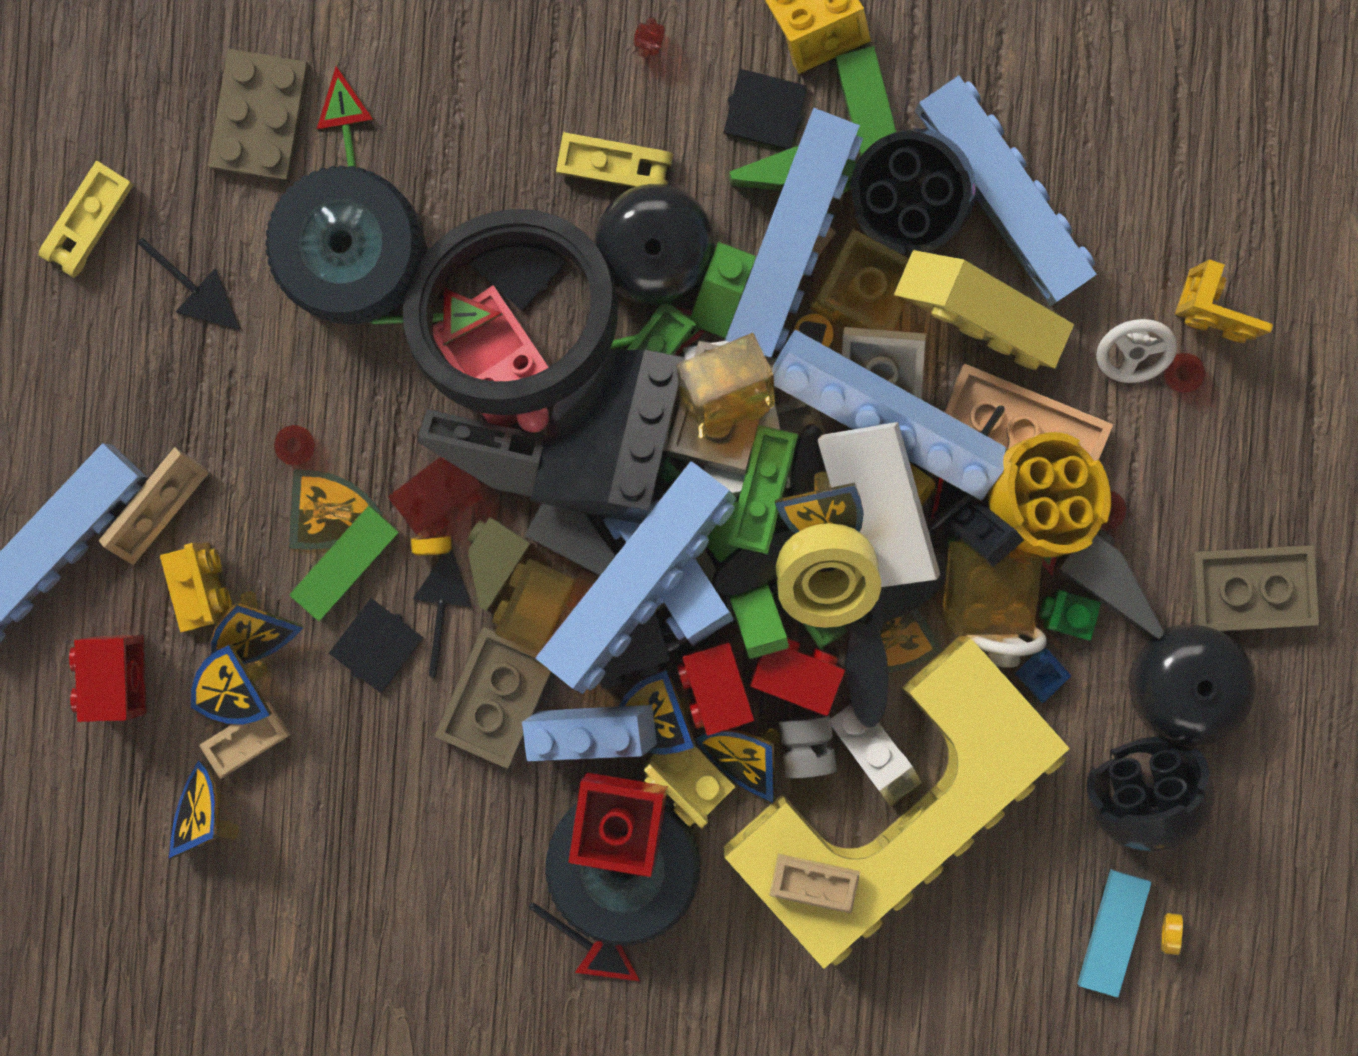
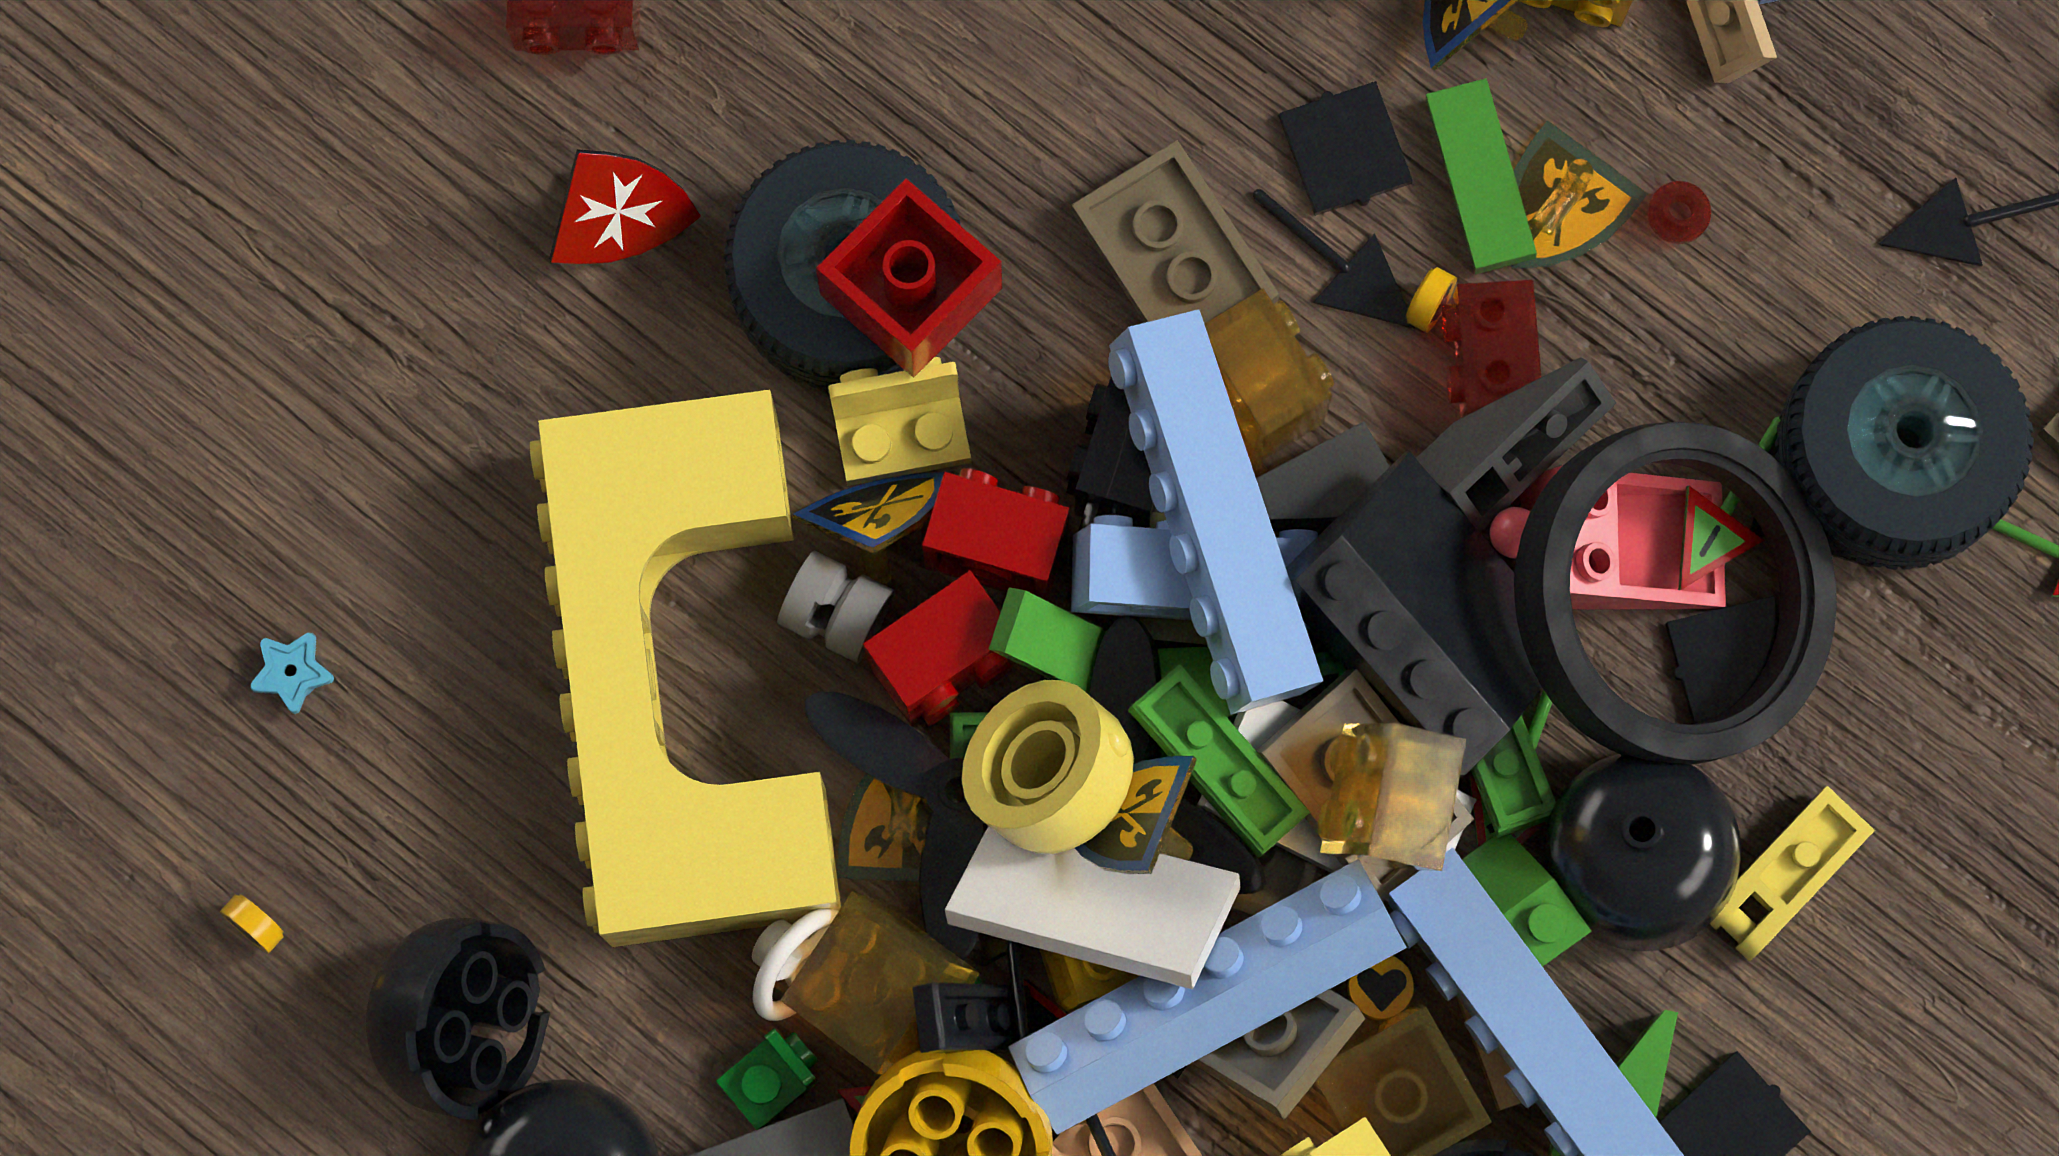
camera: 125 degrees right, 10 degrees down
(494, 558) = (1365, 364): olive slope -> none
(589, 733) = (1047, 334): light blue brick -> none
(601, 958) = (742, 162): piece -> none
(649, 37) = (1932, 1032): clear red plate -> none
(668, 711) = (1012, 430): shield -> none
(673, 1007) = (617, 209): none -> red shield
(814, 883) = (658, 477): tan plate -> none
(876, 755) = (755, 689): white bracket -> none
(1025, 996) = (293, 688): none -> medium azure plate
(1043, 674) = (714, 985): blue tile -> none
(1114, 933) = (306, 850): medium azure tile -> none

